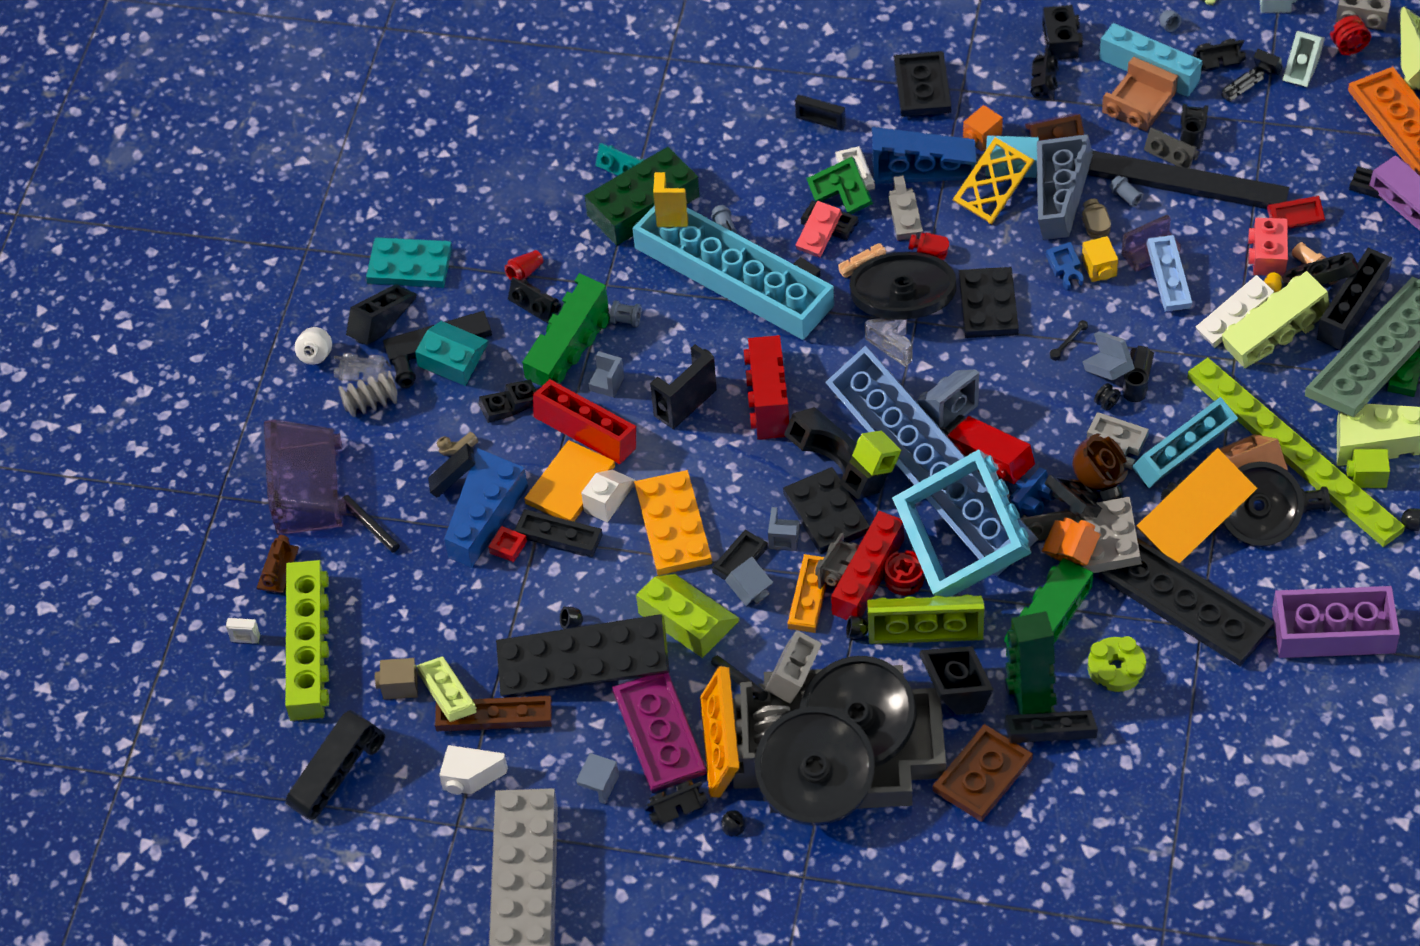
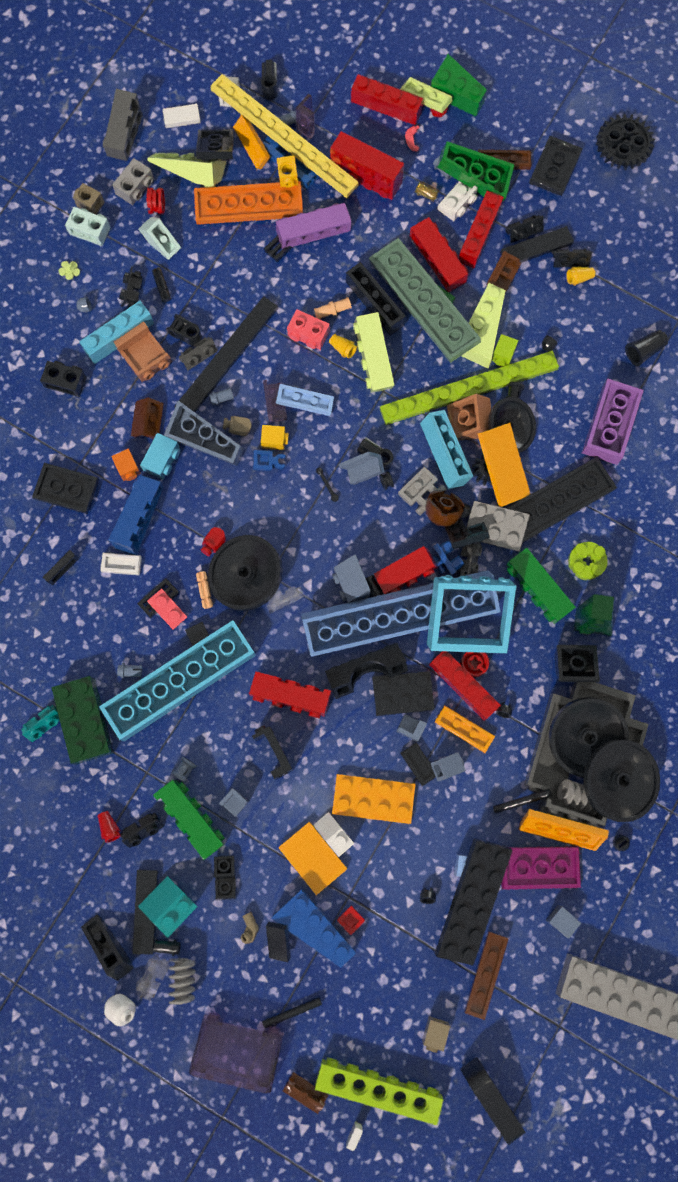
camera: 75 degrees left, 25 degrees up
(409, 262) = (65, 910): teal plate -> none
(446, 689) = (458, 1003): yellowish green tile -> none
(470, 769) = (526, 1007): white slope -> none
(559, 532) = (354, 881): black plate -> none
(584, 421) = (272, 832): red brick -> none
(664, 805) = (595, 884): black hinge -> none
(669, 203) = (124, 710): yellow panel -> none
(688, 613) = (452, 815): lime slope -> none
(793, 666) = (543, 766): light grey brick -> none
(835, 562) = (450, 699): dark grey hinge -> none
(842, 179) = (135, 573): green plate -> none
(876, 452) = (387, 646): lime brick -> none
(904, 210) = (173, 545): light grey hinge -> none
(925, 619) = (518, 663): lime slope -> none
(982, 772) = (640, 674): reddish brown plate -> none
(984, 161) = (184, 462): yellow window -> none
(988, 302) = (275, 522): black plate -> none
(1044, 75) = (89, 402): black hinge -> none
(1051, 726) = (624, 620): black plate -> none
(1071, 541) = (501, 551): orange brick -> none
(1233, 310) = (354, 373): white plate -> none
(1268, 62) = (154, 261): black plate -> none
(1298, 212) = (286, 301): red tile -> none
(1326, 270) = (349, 294): black beam -> none

